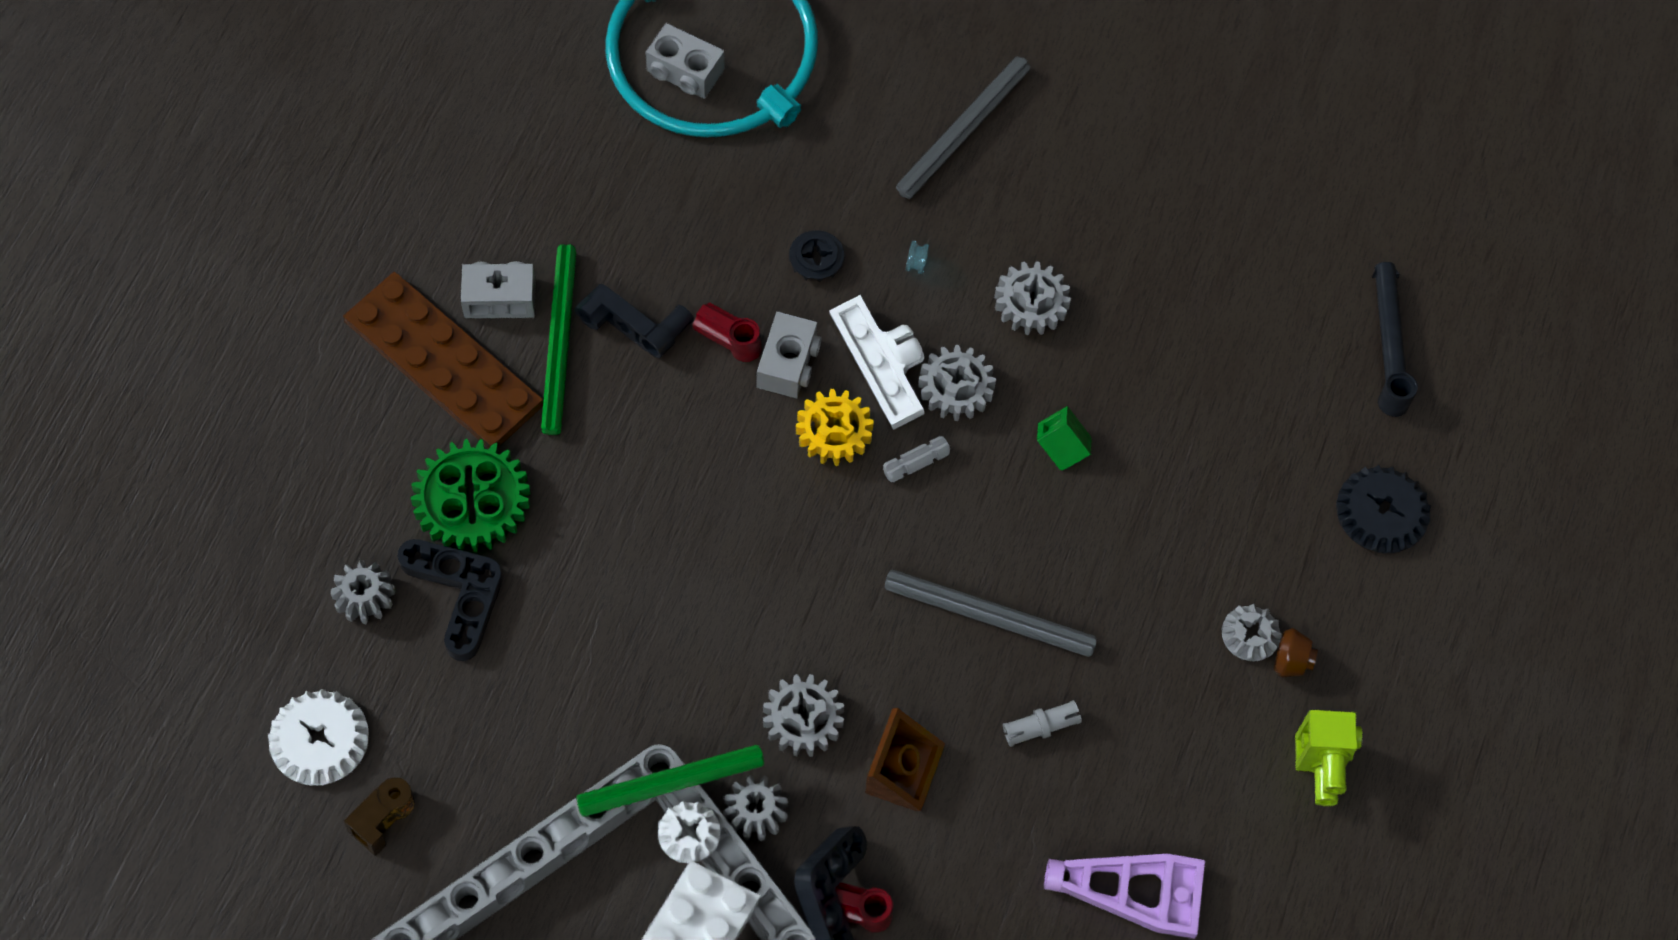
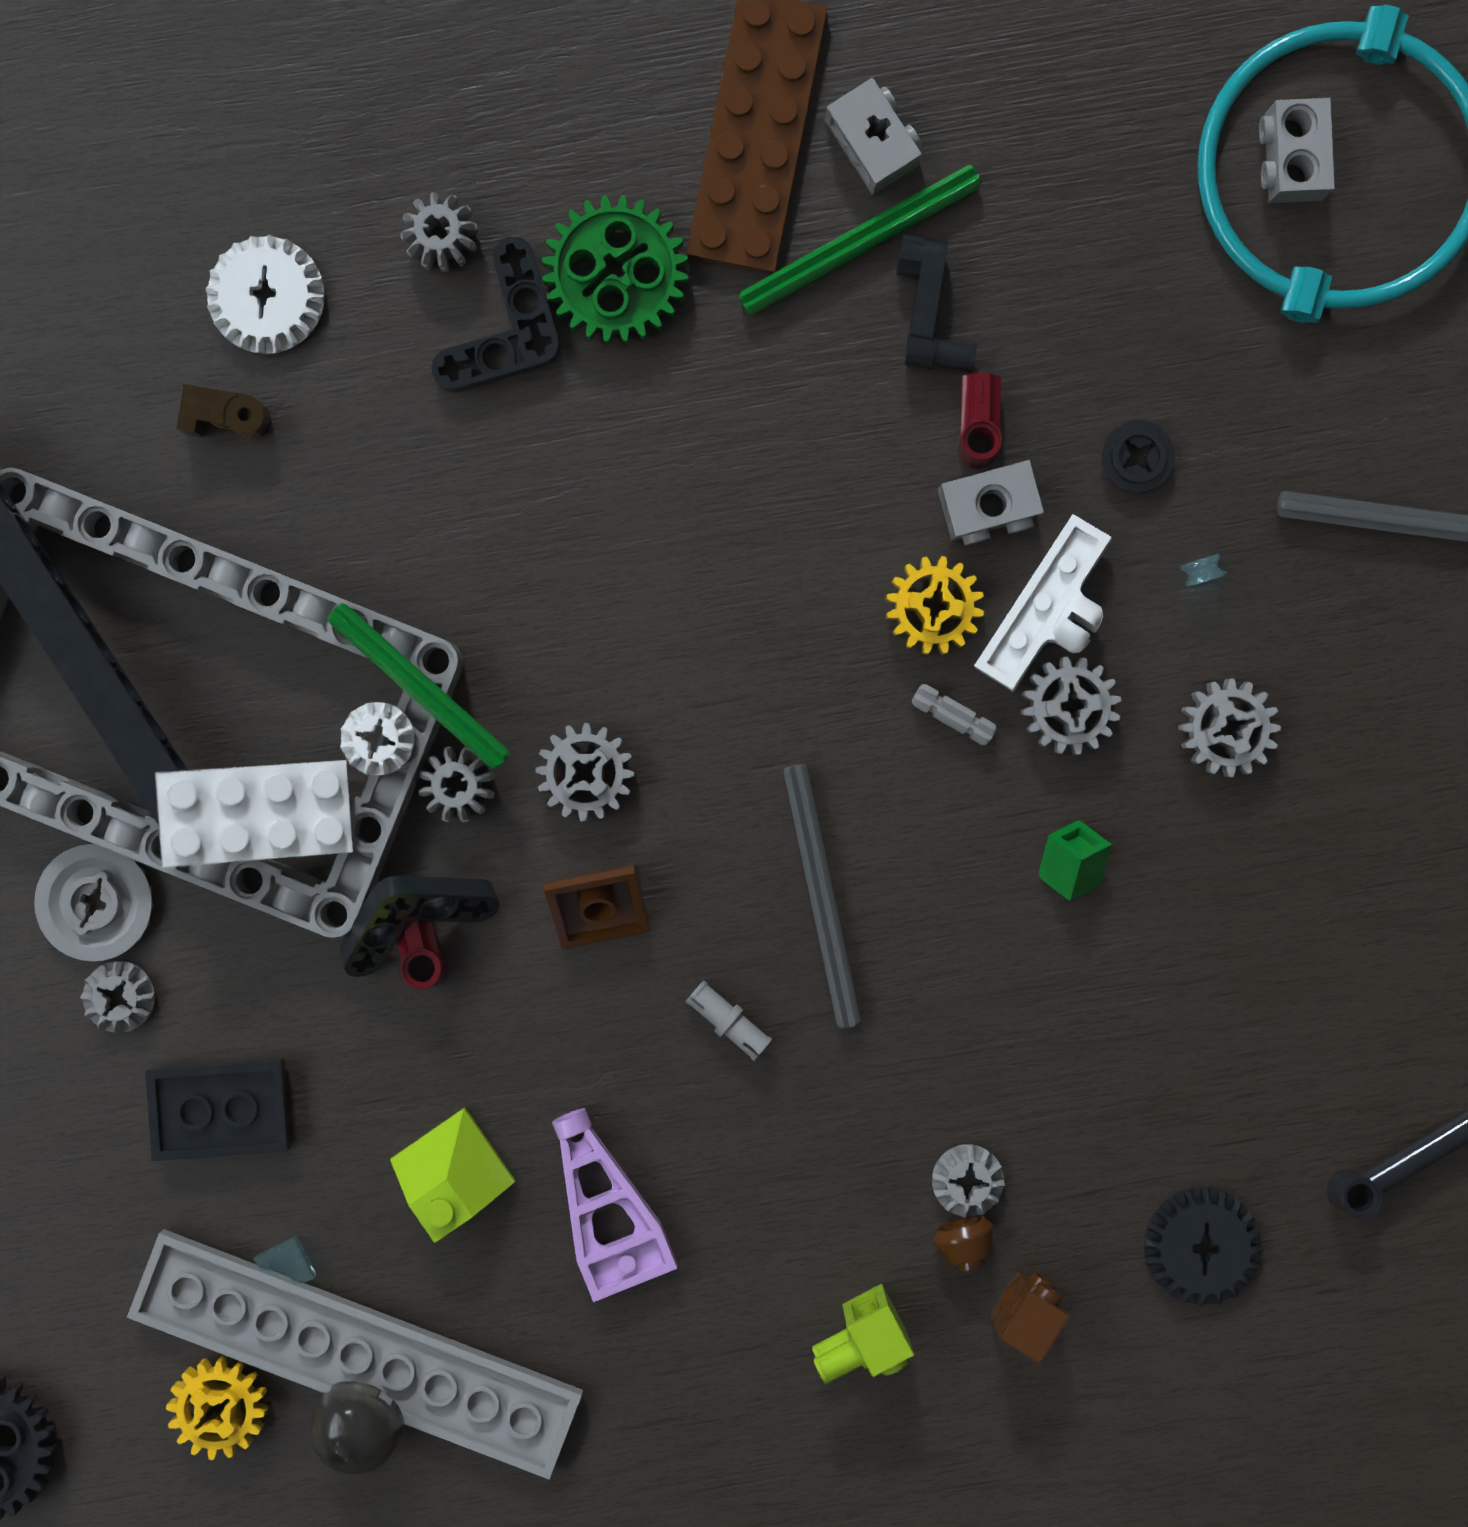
camera: 65 degrees right, 25 degrees up
(1369, 635) = (1029, 1315): none -> reddish brown brick

